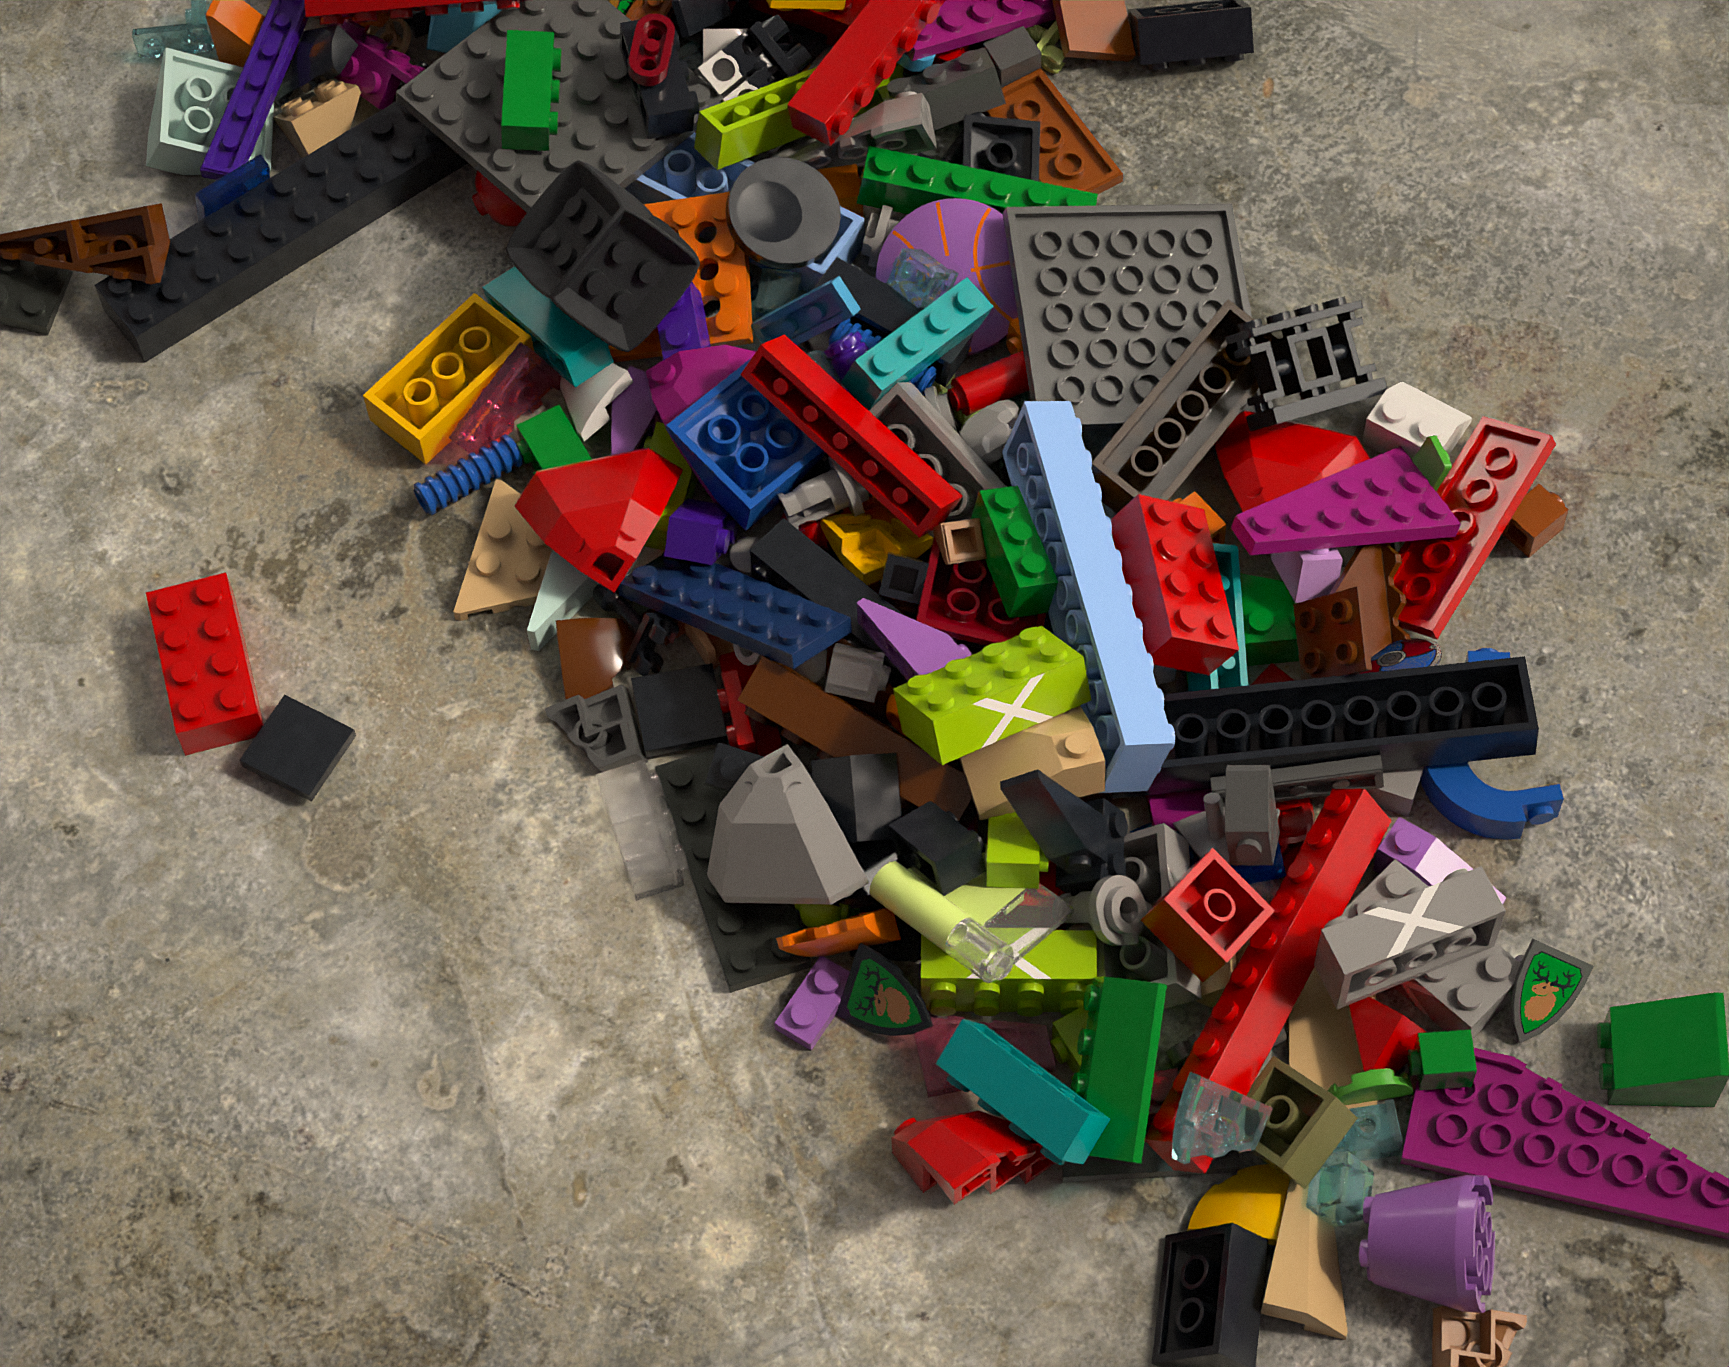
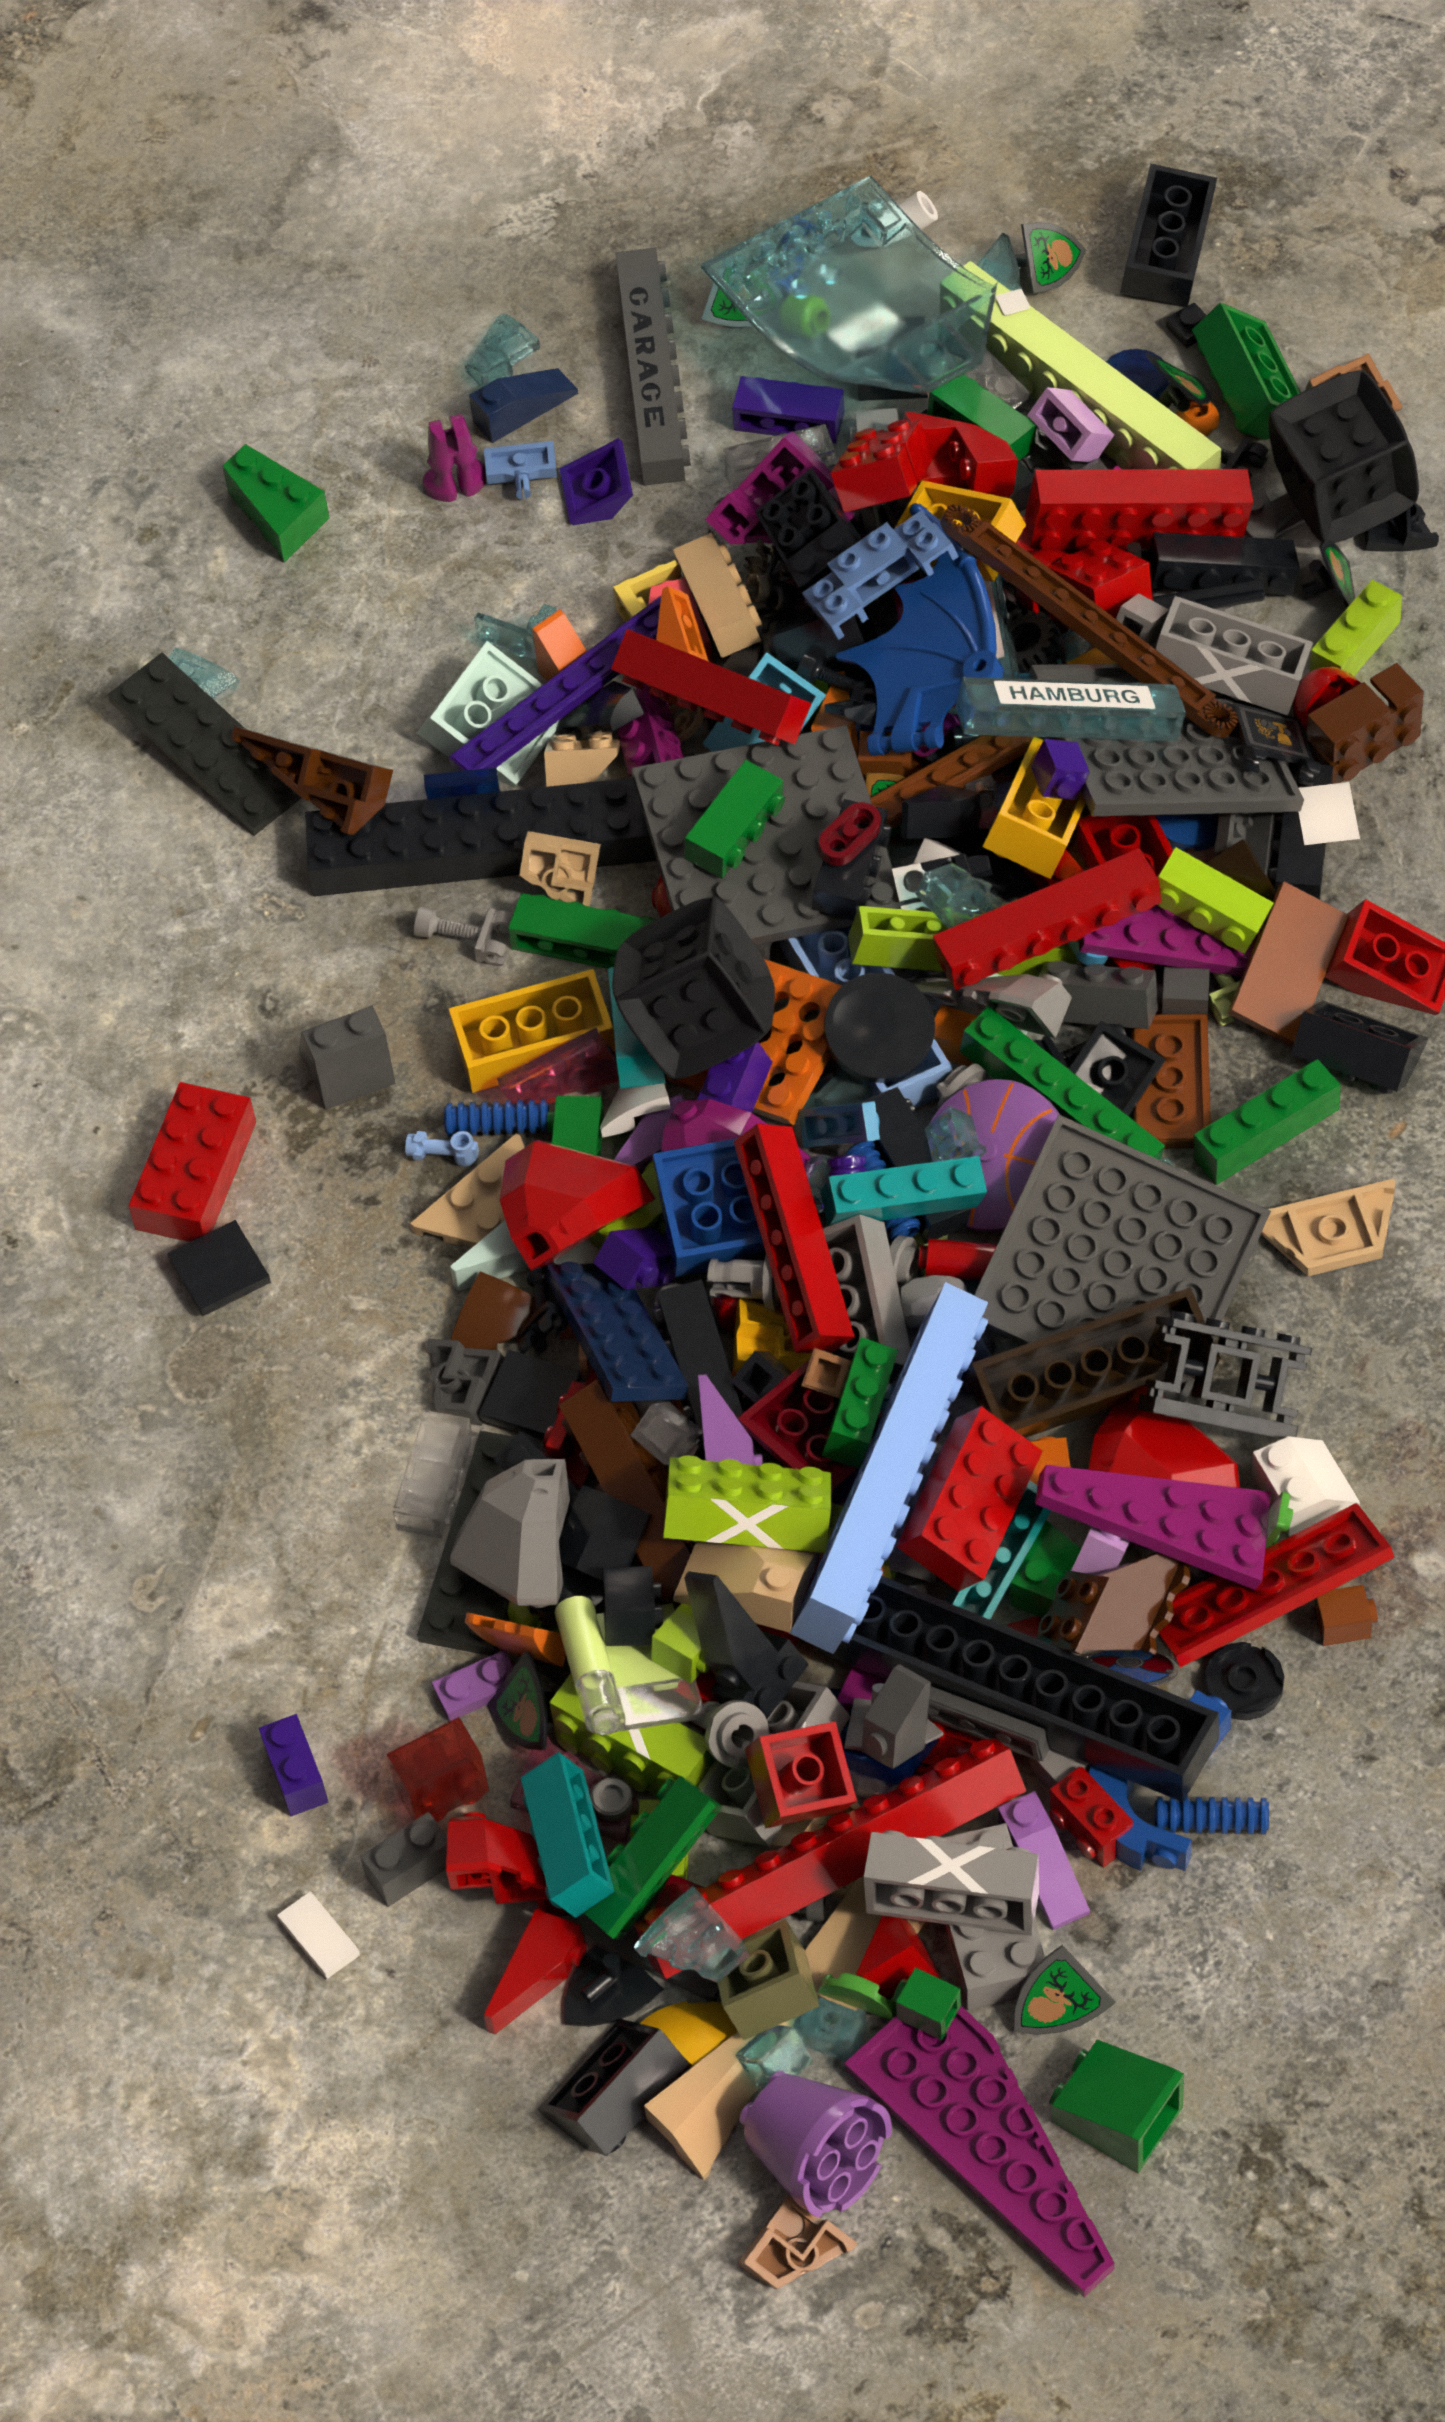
camera: 35 degrees right, 5 degrees down
(292, 489) = (347, 1057): none -> dark grey slope
(345, 298) = (485, 949): none -> light grey bar
(376, 219) = (560, 866): none -> tan slope
(433, 269) = (570, 930): none -> green brick
(454, 520) = (460, 1146): none -> light blue bar
(701, 1173) = (293, 1765): none -> dark purple brick
(779, 63) = (957, 895): none -> clear light blue slope
(833, 1320) = (318, 1935): none -> white tile
(850, 1103) = (438, 1771): none -> clear red brick
(872, 1200) = (406, 1859): none -> dark grey brick
(1025, 1034) = (611, 1799): none -> light grey tile
(1062, 1220) = (537, 1967): none -> red slope
(1133, 1215) = (606, 1990): none -> black shield
(1162, 132) = (1266, 1121): none -> green brick
(1284, 194) = (1333, 1228): none -> tan wing
(1455, 812) = (1089, 1815): none -> red bracket
(1489, 619) = (1245, 1679): none -> black tile
(1553, 754) = (1212, 1815): none -> blue piece

